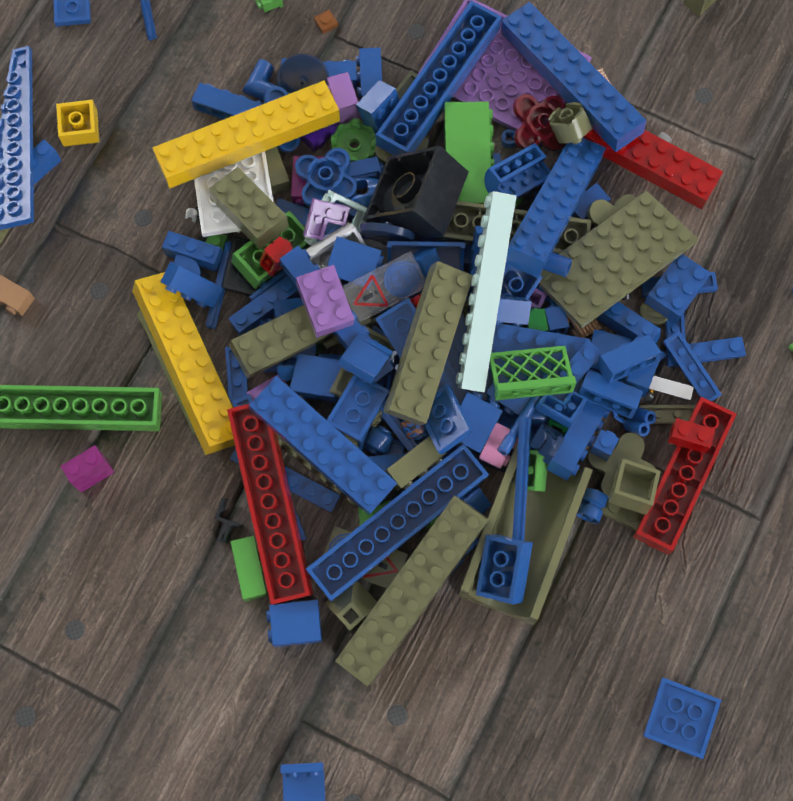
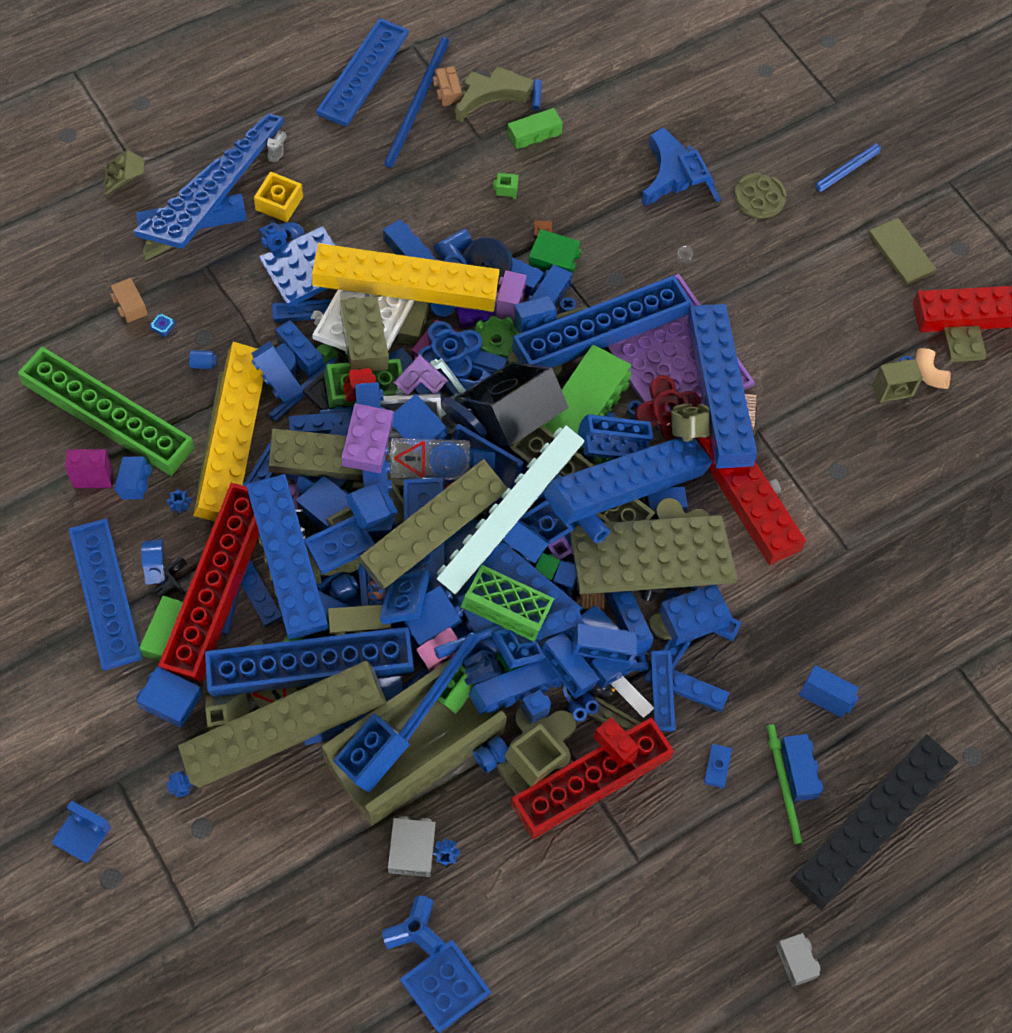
camera: 25 degrees right, 10 degrees down
(41, 77) = (275, 146): none -> light grey piece
(55, 300) = (162, 324): none -> blue tile
(99, 163) = (273, 237): none -> blue brick
(108, 144) = (293, 228): none -> blue piece
(114, 310) = (202, 359): none -> blue brick
(129, 453) = (133, 478): none -> blue brick
(137, 176) = (293, 266): none -> plate
(170, 214) = (299, 311): none -> blue plate
(177, 569) = (105, 594): none -> blue plate
(180, 445) = (179, 501): none -> blue gear
(199, 515) = (153, 561): none -> blue brick
(349, 35) = (555, 250): none -> green brick
(356, 692) = (179, 784): none -> blue gear
(393, 73) = (567, 301): none -> blue bush
(486, 483) = (421, 674): none -> blue piece
(579, 622) = (411, 846): none -> light grey brick
(610, 609) = (446, 851): none -> blue gear
(643, 690) = (423, 937): none -> blue piece
(771, 403) = (717, 766): none -> blue plate

